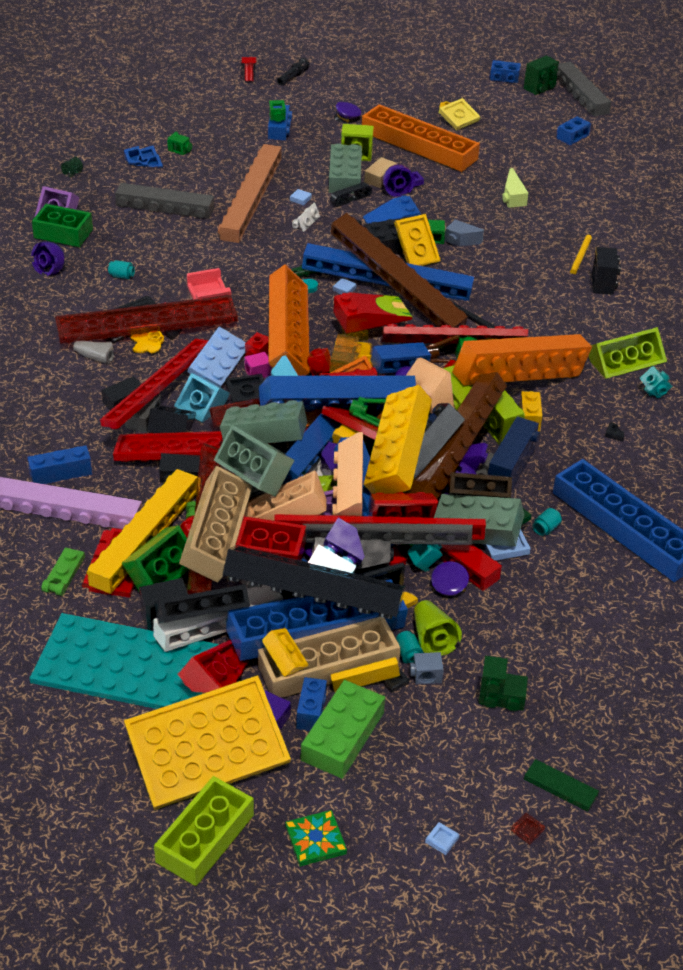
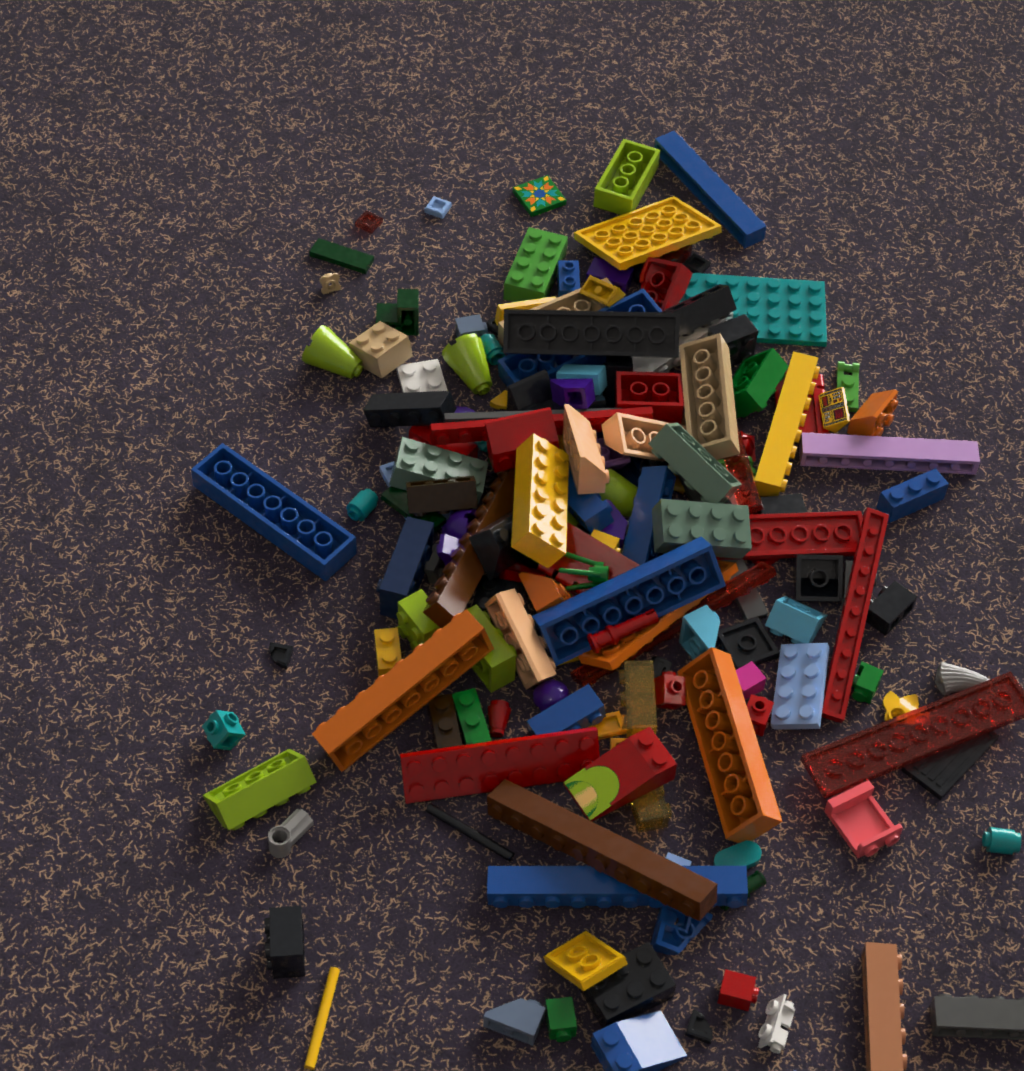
camera: 170 degrees right, 10 degrees up
(58, 526) = (874, 414): none -> orange slope
(90, 542) = (834, 409): none -> slope
(108, 814) = (710, 189): none -> blue brick
(166, 352) = (866, 682): none -> green brick
(322, 229) = (738, 990): none -> red brick
(482, 631) = (421, 377): none -> white plate
(500, 575) = (408, 408): none -> black brick
(525, 649) = (382, 349): none -> tan brick
(575, 654) = (332, 354): none -> lime cone
(575, 744) = (329, 278): none -> tan plate
(607, 327) = (290, 832): none -> light grey piece

